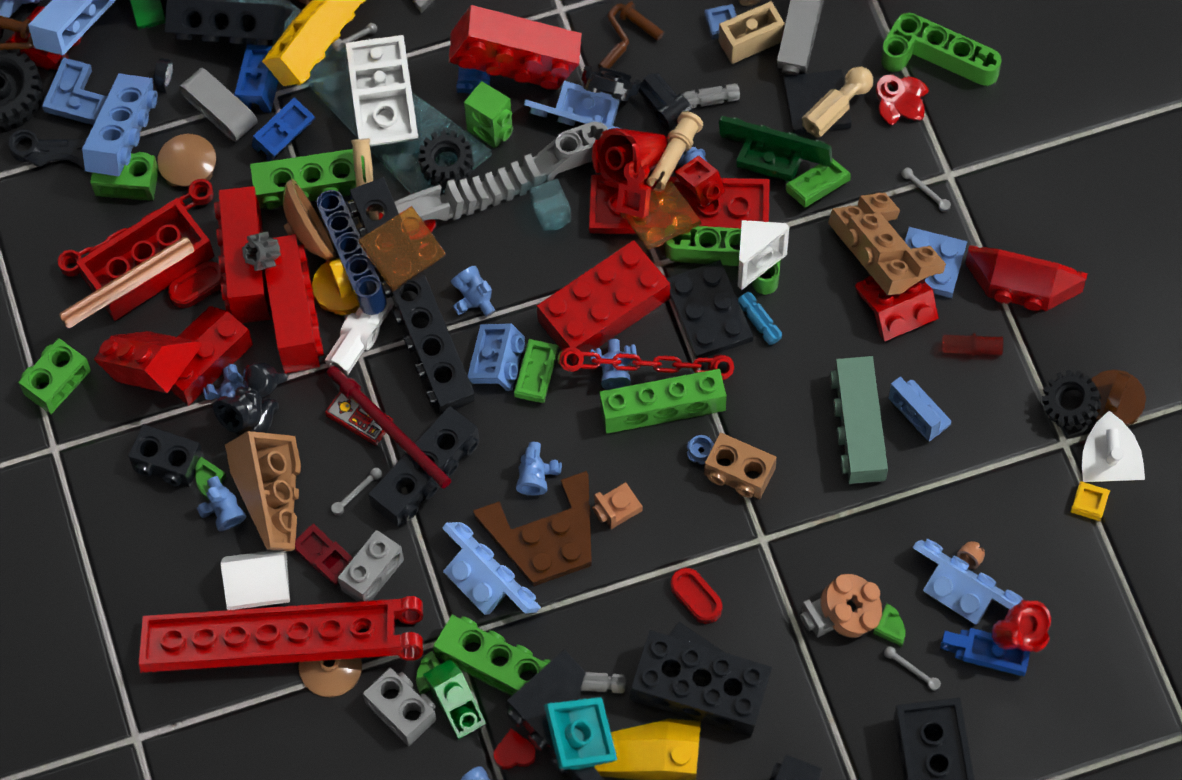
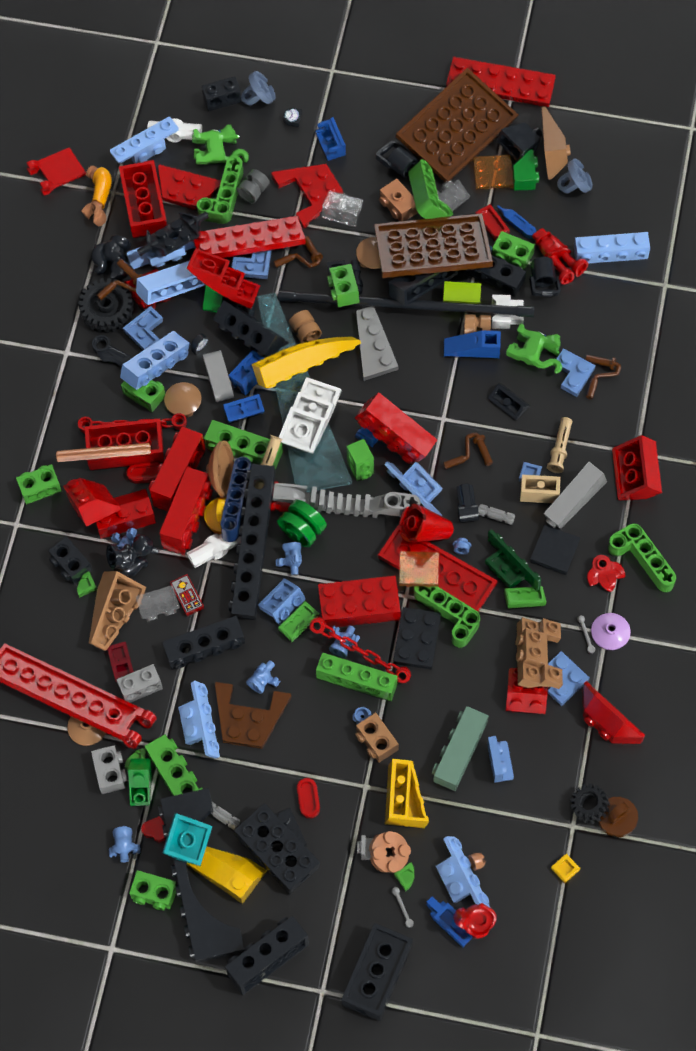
camera: 30 degrees right, 0 degrees up
(223, 504) = (84, 604): medium blue piece -> none
(255, 579) = (75, 655): white slope -> none
(261, 251) = (181, 473): dark grey gear -> none
(326, 447) = (157, 602): none -> clear bracket
(338, 507) = (144, 640): light grey hinge -> none
(352, 390) = (190, 578): dark red bar -> none
(371, 28) = (329, 375): light grey hinge -> none
(402, 248) = (260, 512): clear orange piece -> none
(445, 144) = (321, 462): black tyre -> none
(464, 235) = (302, 523): none -> green wheel
(550, 205) = (364, 530): clear light blue brick -> none
(610, 81) = (441, 476): black plate -> none
(616, 505) = (295, 722): nougat bracket -> none
(632, 194) = (409, 548): red plate -> none
(679, 141) = (457, 532): tan pin -> none
(702, 180) = (456, 561): red bracket -> none
(760, 248) = (458, 619): white slope -> none
(760, 318) = (442, 657): dark azure axle -> none
(825, 522) = (403, 798): none -> yellow wedge
(836, 103) = (562, 555): tan piece -> none
(954, 180) = (610, 639): none -> lavender dish
(972, 344) = (554, 739): clear red axle -> none
(1111, 453) = (595, 847): white shield -> none

